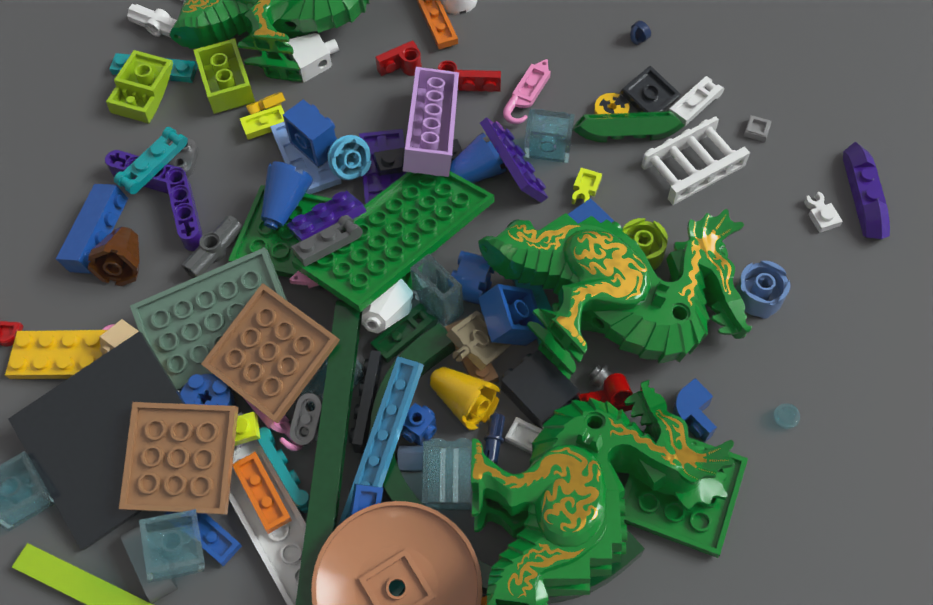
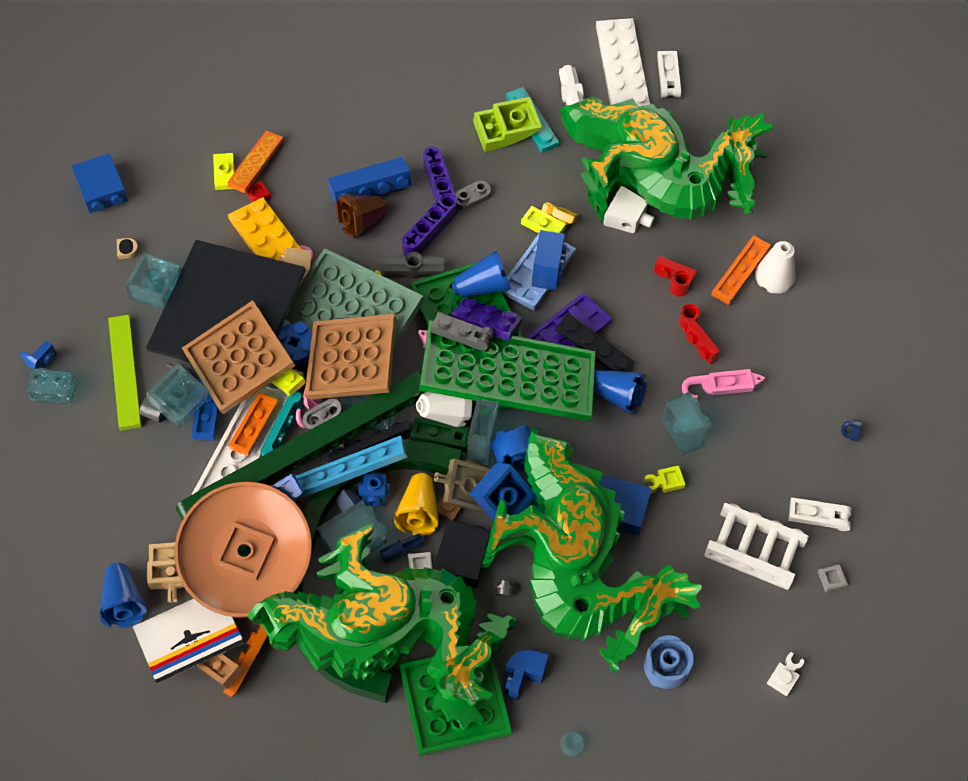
camera: 50 degrees right, 0 degrees up
(151, 161) = (446, 177): teal plate -> none
(224, 76) = (557, 169): lime brick -> none
(349, 157) = (549, 299): medium azure cone -> none
(431, 122) = (625, 332): lavender brick -> none
(513, 158) = (642, 413): dark purple plate -> none
(611, 101) = (761, 447): yellow piece -> none
(615, 391) = (487, 604): red plate -> none
(617, 125) = (750, 477): green brick -> none
(650, 92) = (796, 474): black plate -> none
(650, 237) = (634, 540): lime brick -> none
(866, 192) = (835, 698): dark purple brick -> none

